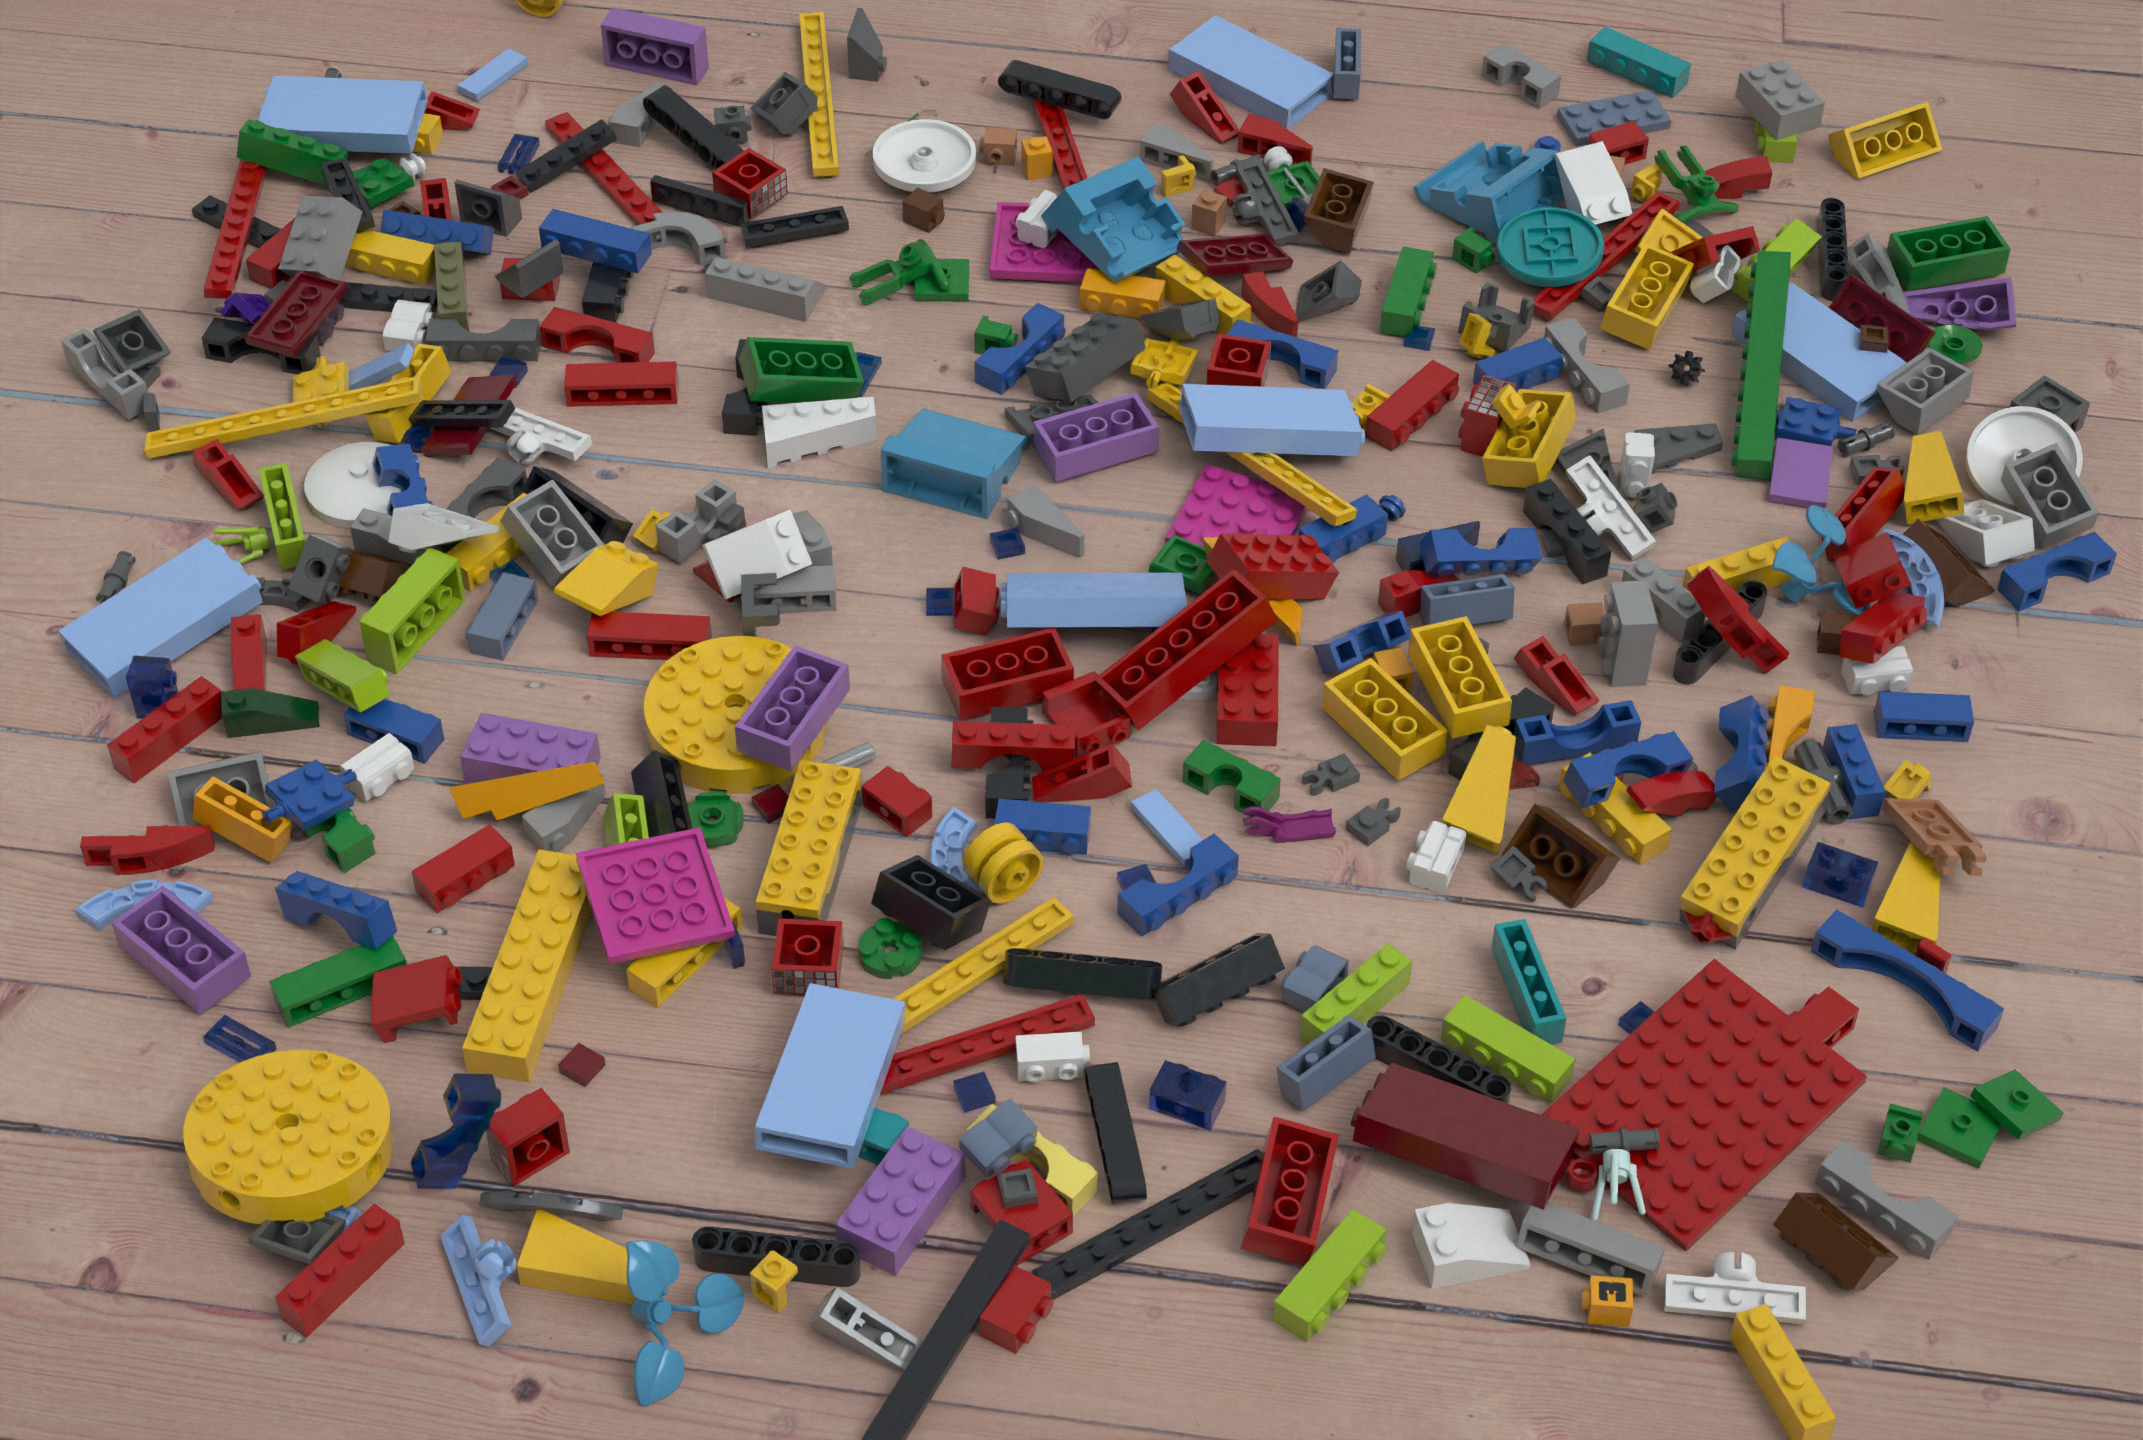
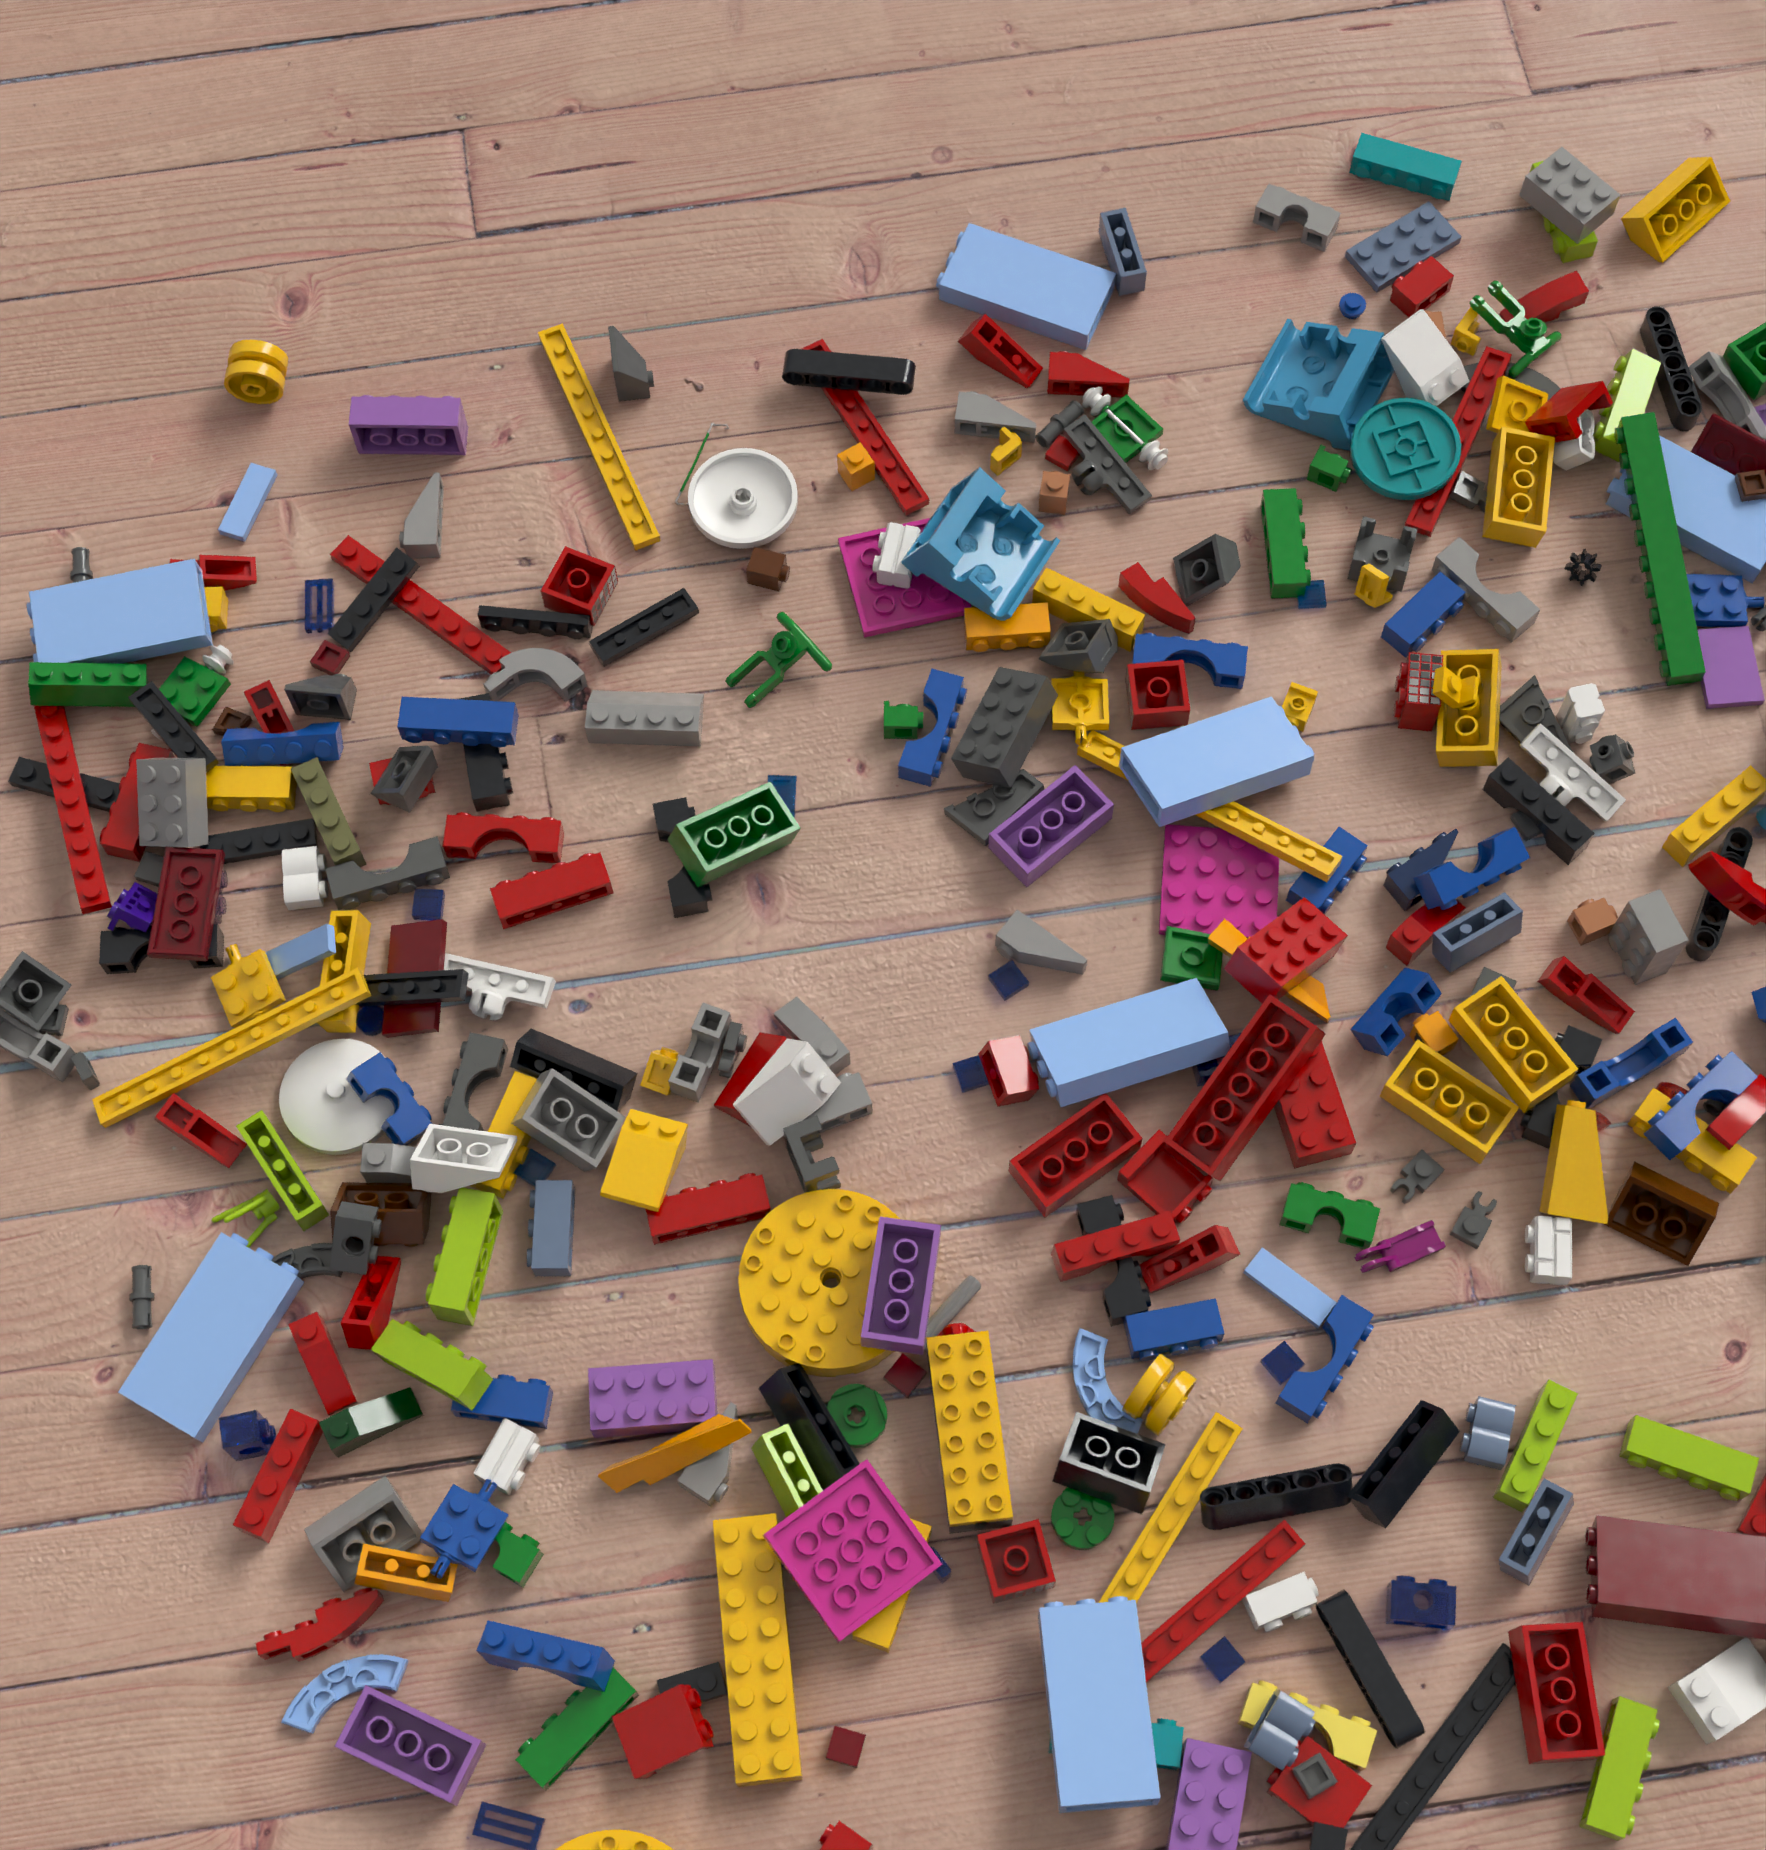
camera: 15 degrees left, 20 degrees up
(463, 868) = (643, 1555): red brick -> none
(690, 127) = (496, 532): black beam -> none
(733, 122) = (528, 509): dark grey brick -> none
(786, 104) = (574, 466): dark grey slope -> none
(817, 427) = (768, 893): white wedge -> none
(897, 801) = (1026, 1339): red brick -> none
(951, 462) = (920, 894): dark azure panel -> none
(958, 276) = (830, 642): green plate -> none
(999, 146) = (811, 459): nougat brick -> none
(1234, 254) = (1101, 546): dark red tile -> none
(1297, 210) = (1142, 466): clear blue tile -> none
(1338, 209) = (1184, 456): reddish brown slope -> none
(1393, 506) = (1362, 827): blue plate -> none
(1412, 405) = (1337, 691): red brick -> none
(1415, 1051) = (1647, 1494): black beam -> none
(1517, 870) = (1628, 1243): dark grey plate -> none
(1528, 981) = (1685, 1379): teal brick -> none
(1677, 605) = (1640, 858): light grey arch -> none
(1683, 442) = (1601, 661): dark grey wing -> none

